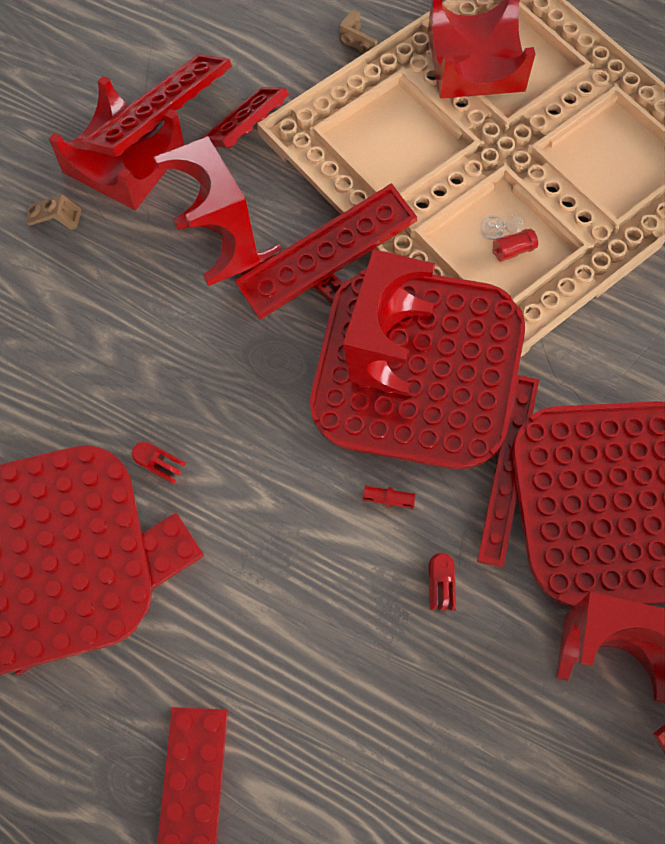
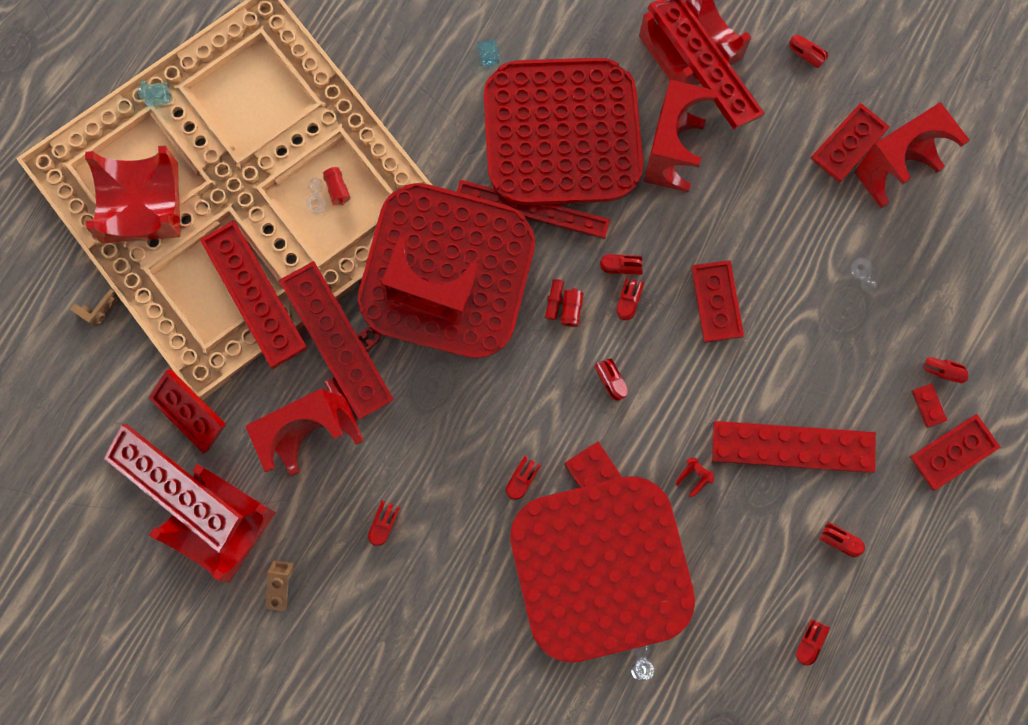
camera: 90 degrees left, 10 degrees up
(109, 309) = (380, 530): none -> red arm
(161, 675) = (705, 475): none -> red piece
(283, 569) = (611, 379): none -> red arm
(374, 166) = (253, 295): none -> red plate
(379, 518) = (571, 307): none -> red piece
(394, 592) = (627, 302): none -> red arm
(397, 715) = (717, 301): none -> red plate
(602, 61) = (154, 93): none -> clear light blue bracket

